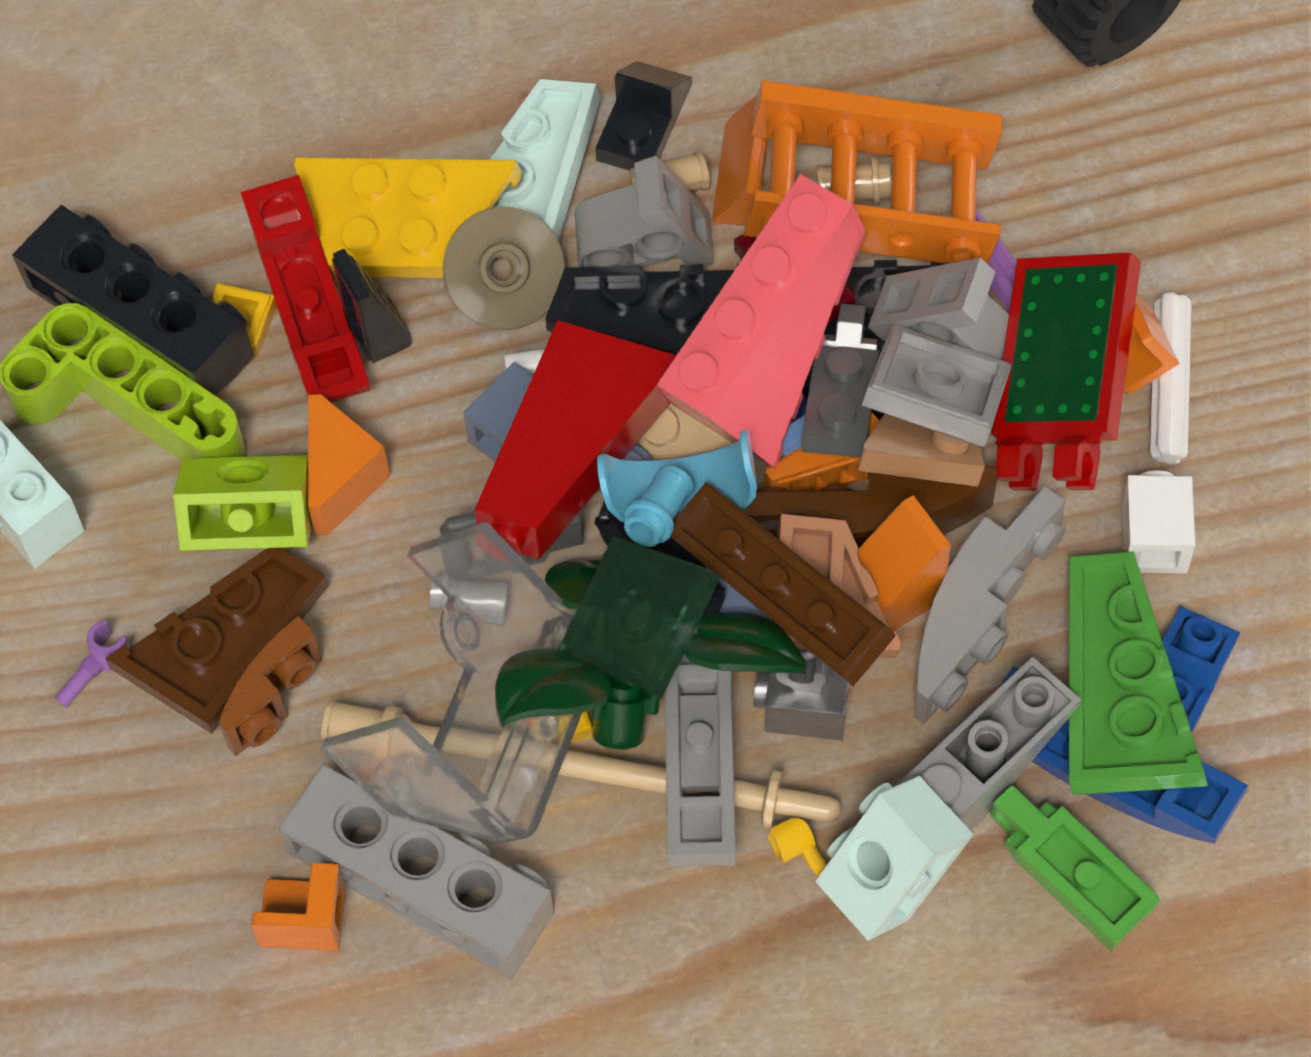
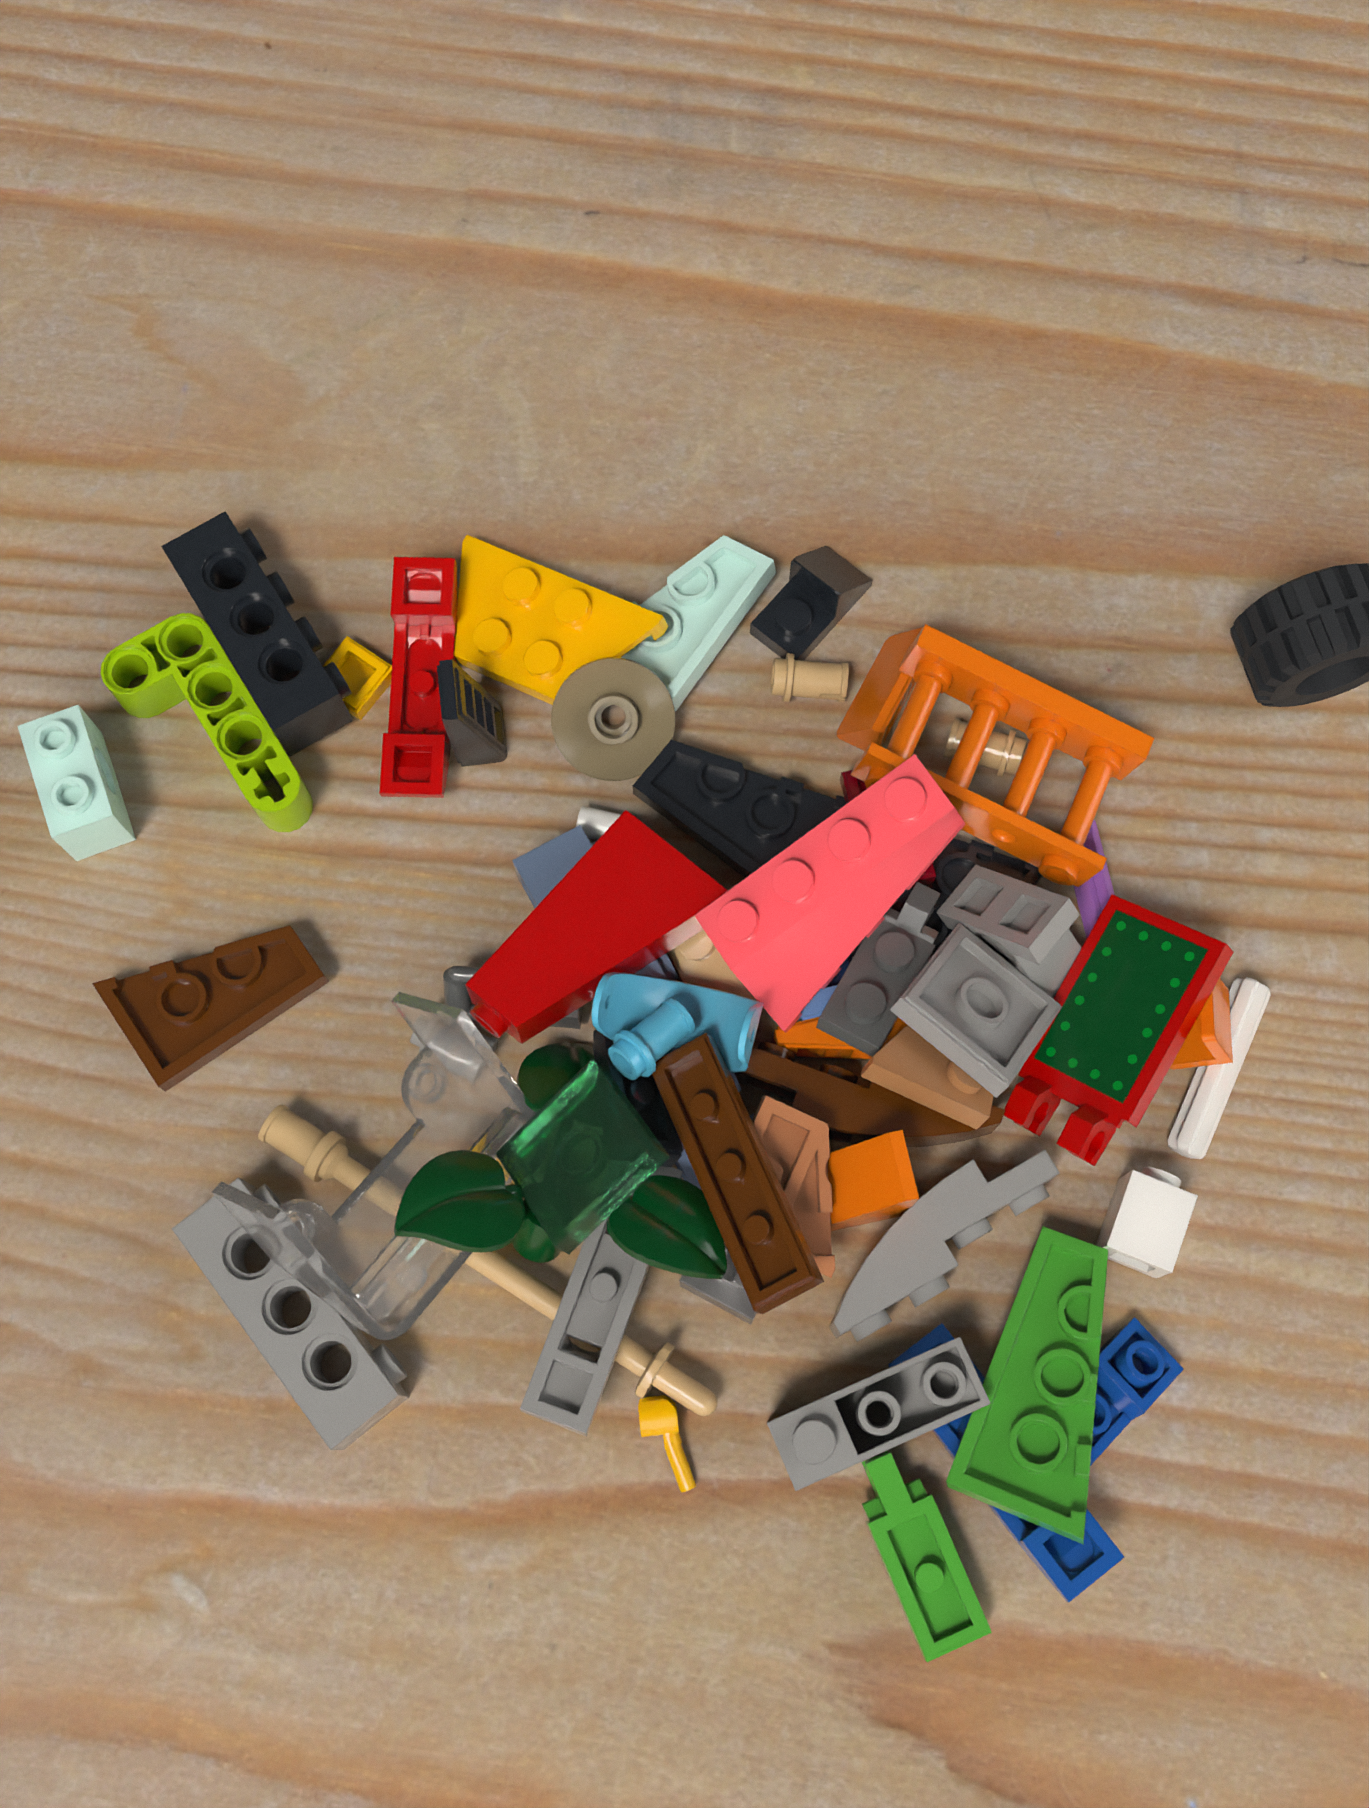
camera: 20 degrees right, 10 degrees up
(92, 664) = (83, 981): medium lavender hand -> none
(242, 503) = (276, 874): lime brick -> none
(255, 704) = (212, 1079): dark orange slope -> none
(302, 911) = (172, 1309): orange panel -> none
(342, 465) = (380, 866): orange slope -> none
(644, 222) = (763, 723): light grey tile -> none
(892, 856) = (740, 1493): light aqua brick -> none

